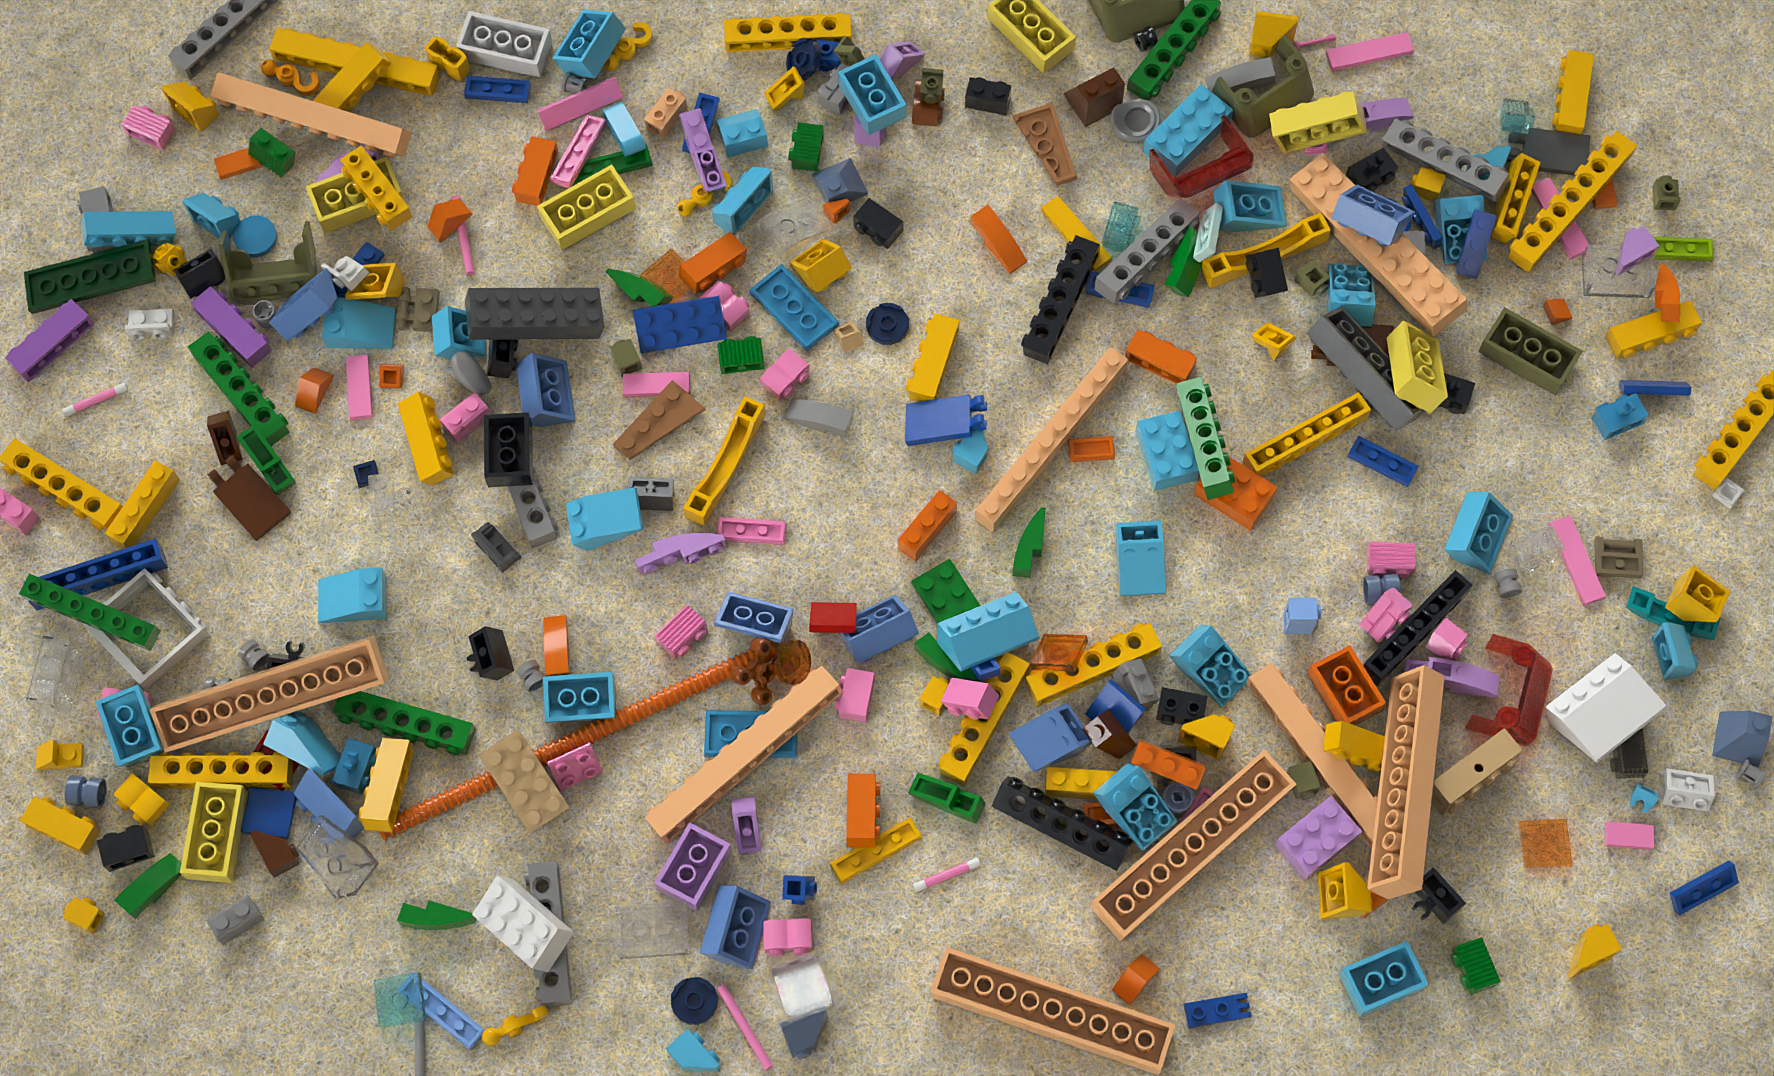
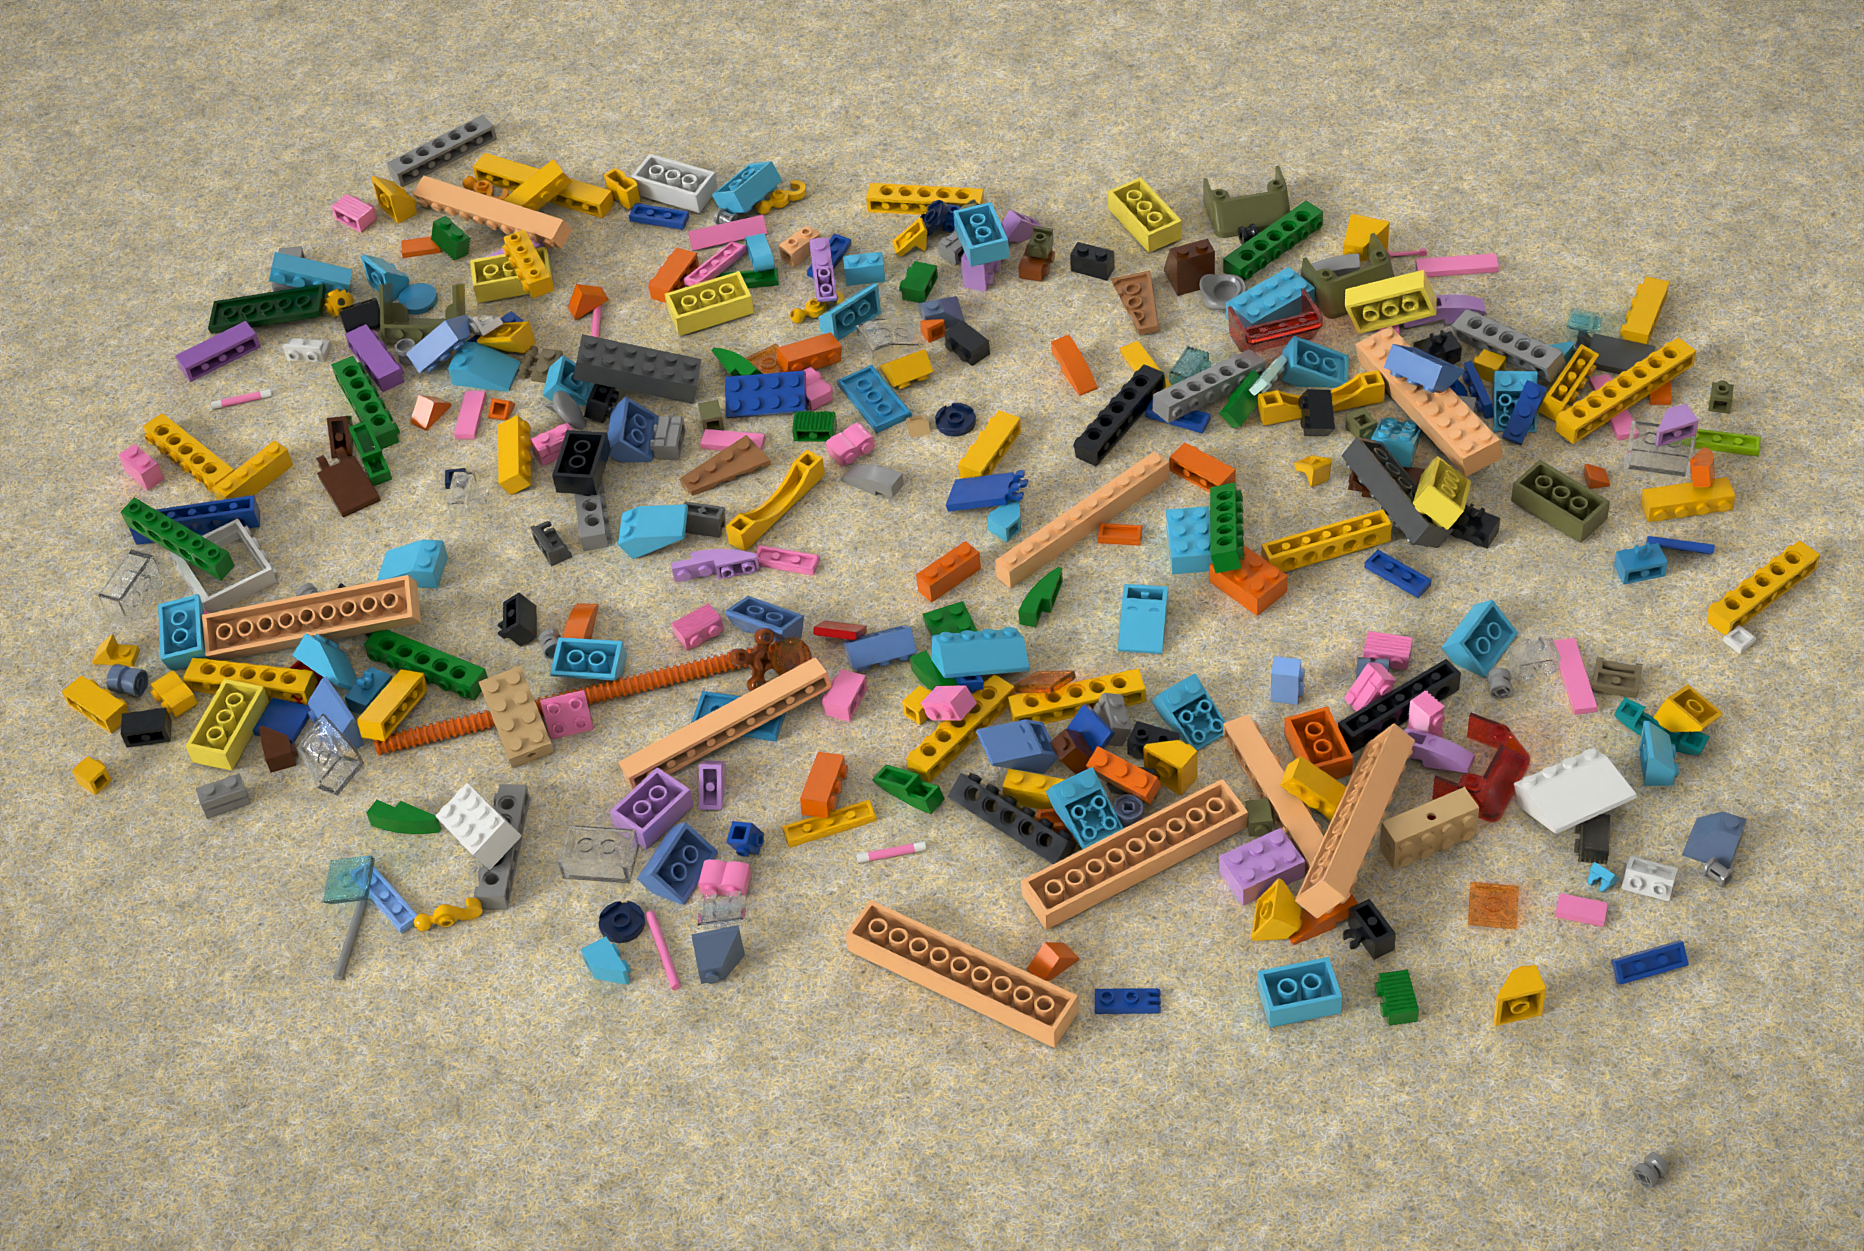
camera: 15 degrees right, 20 degrees down
(150, 885) = (155, 760): green slope -> none
(587, 392) = (668, 438): none -> light grey brick

